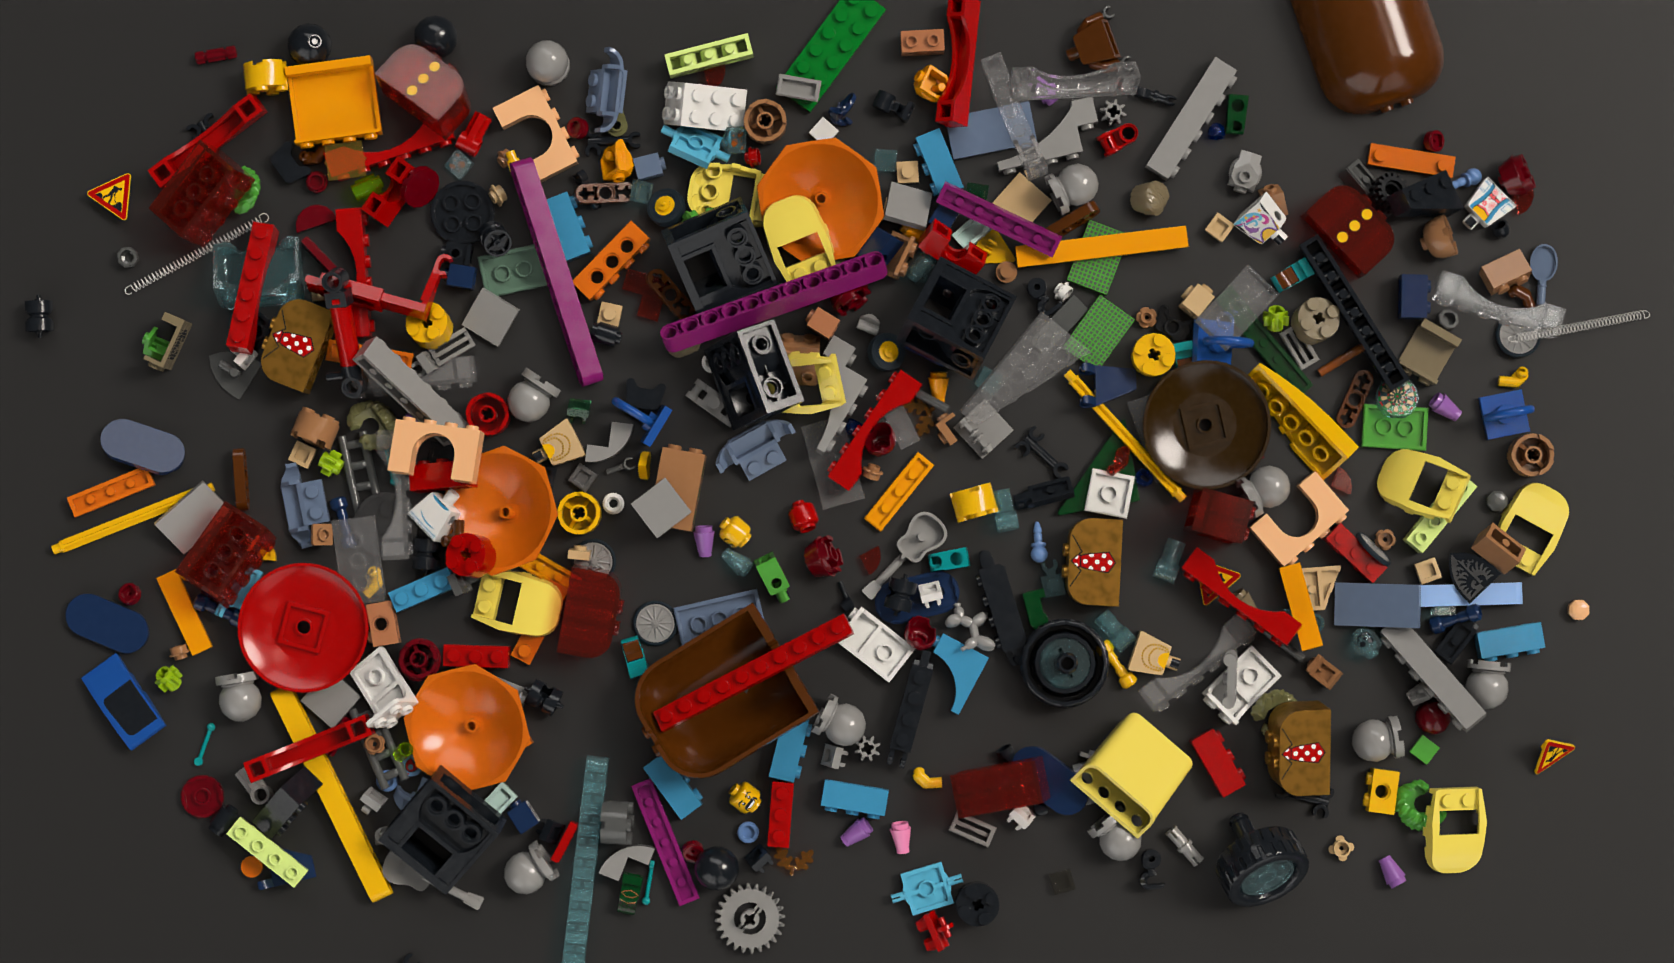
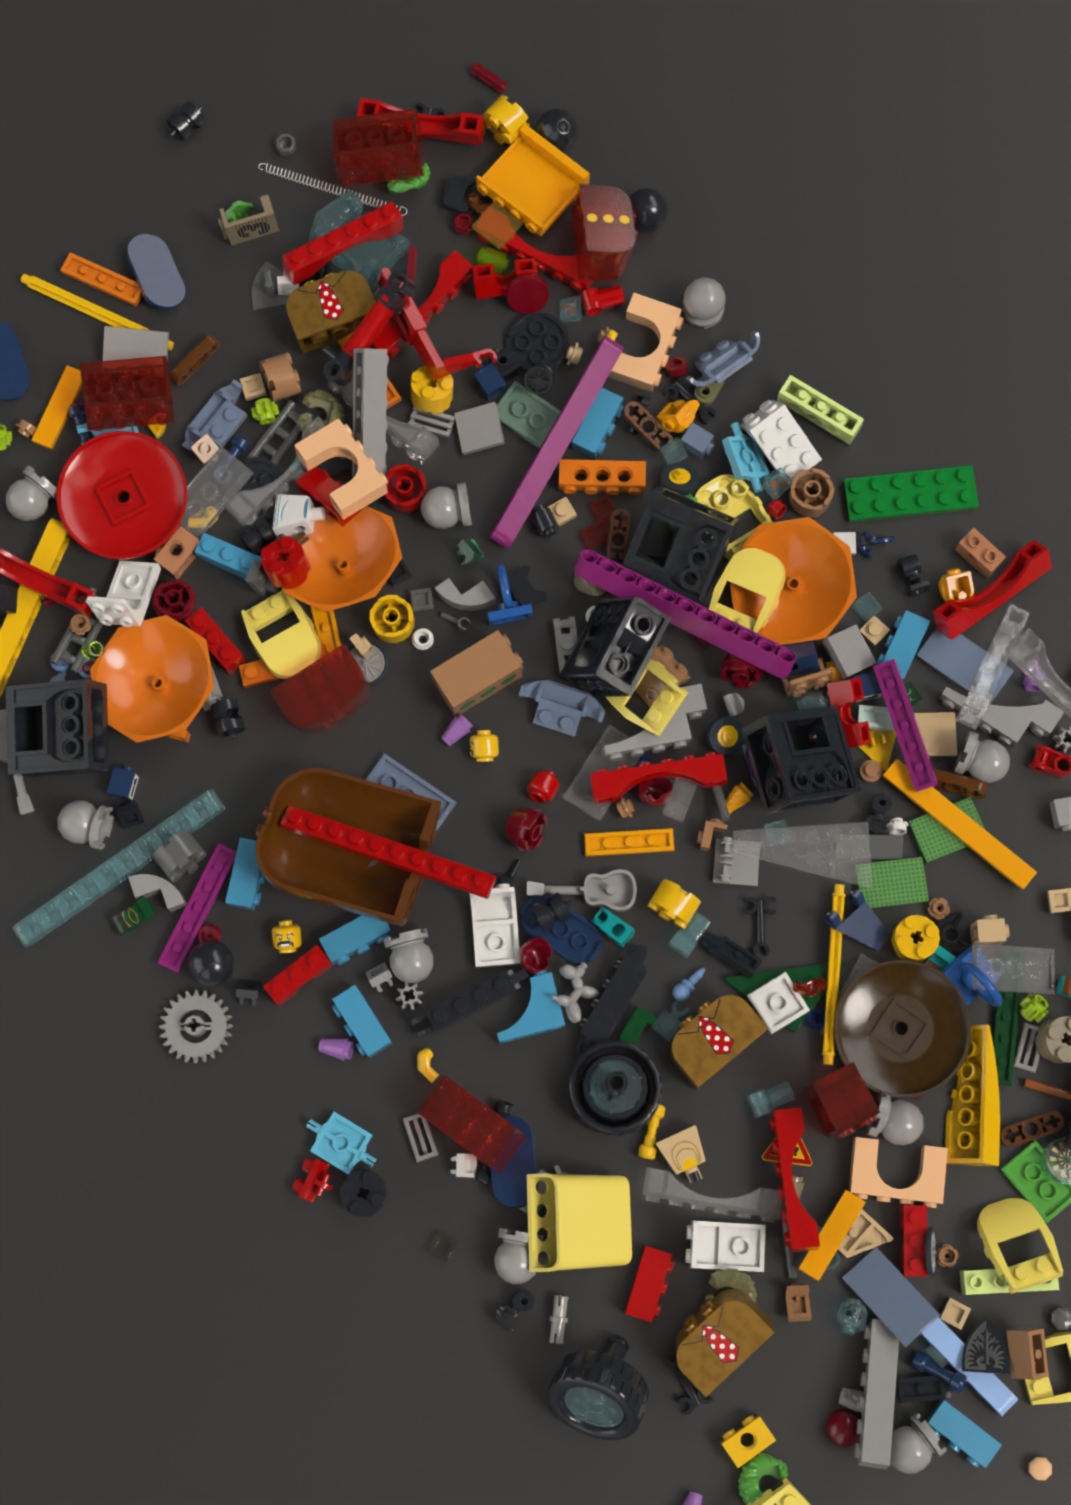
camera: 50 degrees right, 10 degrees down
(114, 195) = (322, 96): piece -> none
(129, 594) = (38, 357): dark red tile -> none
(313, 217) = (434, 243): dark red tile -> none
(332, 703) = (87, 568): light grey tile -> none
(373, 800) = (36, 662): light grey tile -> none
(427, 363) = (403, 411): light grey tile -> none
(501, 797) = (122, 755): light aqua tile -> none
(560, 445) = (430, 560): tan torso -> none
(566, 839) = (130, 831): red tile -> none
(634, 656) = (321, 755): leg -> none
(644, 465) = (472, 635): yellow tile -> none
(646, 900) = (140, 934): teal hinge -> none
(655, 623) = (360, 751): light grey wheel -> none
(661, 508) = (450, 669): light grey tile -> none
(715, 75) = (811, 428): clear red tile -> none
(739, 563) = (463, 770): clear light blue cone -> none
(748, 832) = (262, 964): medium blue tile -> none
(770, 569) = (480, 795): bright green torso -> none
(785, 862) = (273, 1027): clear orange animal -> none
(798, 87) = (859, 493): light grey tile -> none
(822, 323) = (702, 667): nougat brick -> none
(871, 559) = (558, 868): clear red tile -> none
(901, 836) = (364, 1085): bright pink cone -> none
(920, 406) = (702, 814): clear orange animal -> none
(930, 592) = (574, 934): white tile -> none
(1117, 633) = (676, 1112): clear light blue piece -> none
(1149, 198) = (1030, 827): dark tan hair -> none
(1230, 678) = (723, 1230): light grey plate -> none
(1341, 481) = (958, 1179): clear red tile -> none
(1347, 848) = (676, 1445): tan plate -> none
(1376, 740) = (784, 1397): light grey tile -> none
(1424, 749) = (812, 1445): bright green tile -> none

